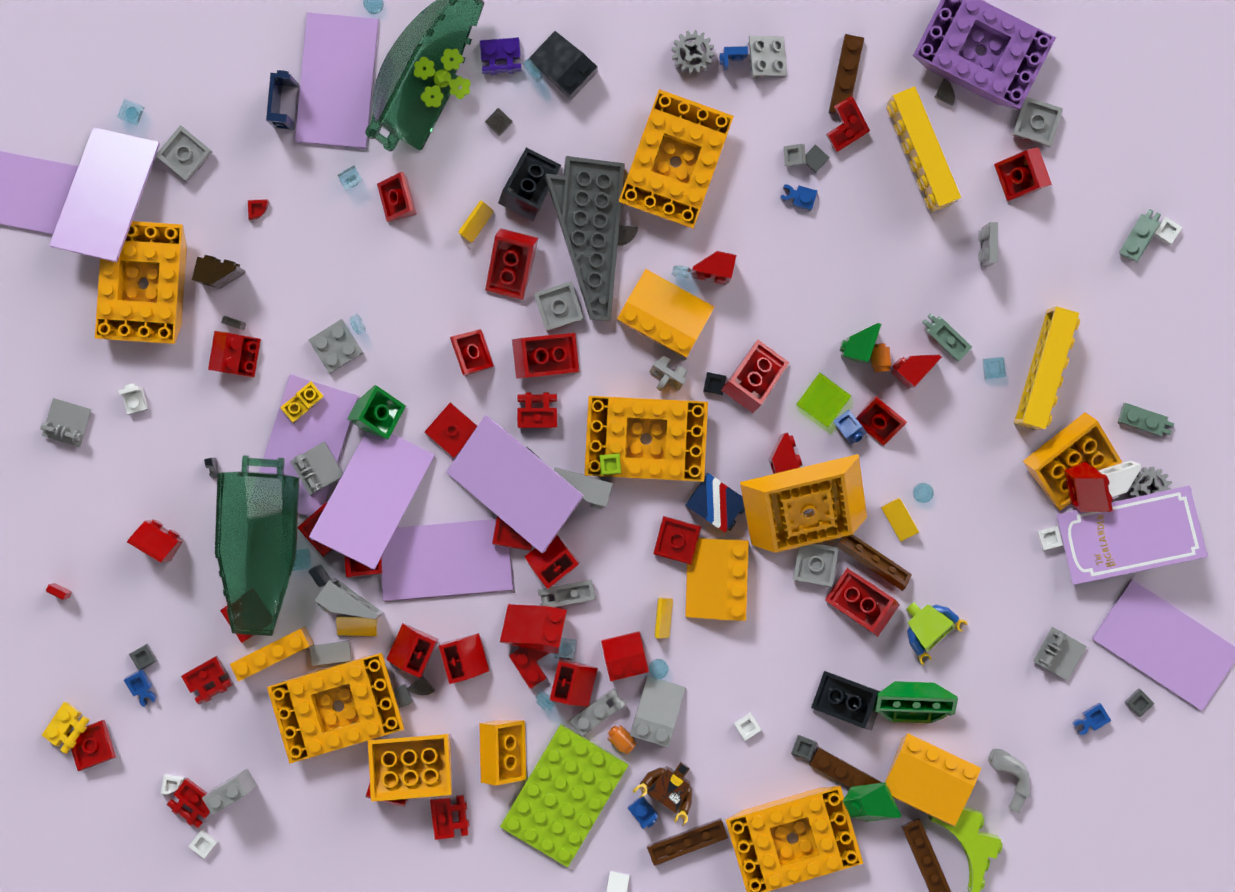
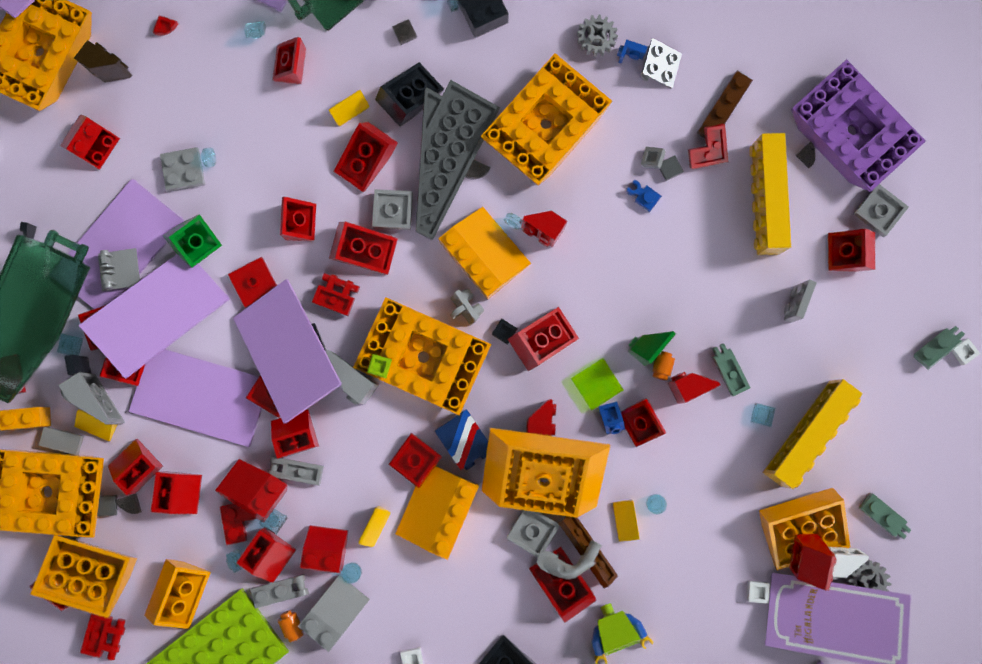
camera: 20 degrees right, 5 degrees down
(233, 322) = (99, 113): clear smoke tile -> none
(301, 402) = (131, 206): yellow slope -> none
(845, 587) = (551, 564): none -> light grey piece

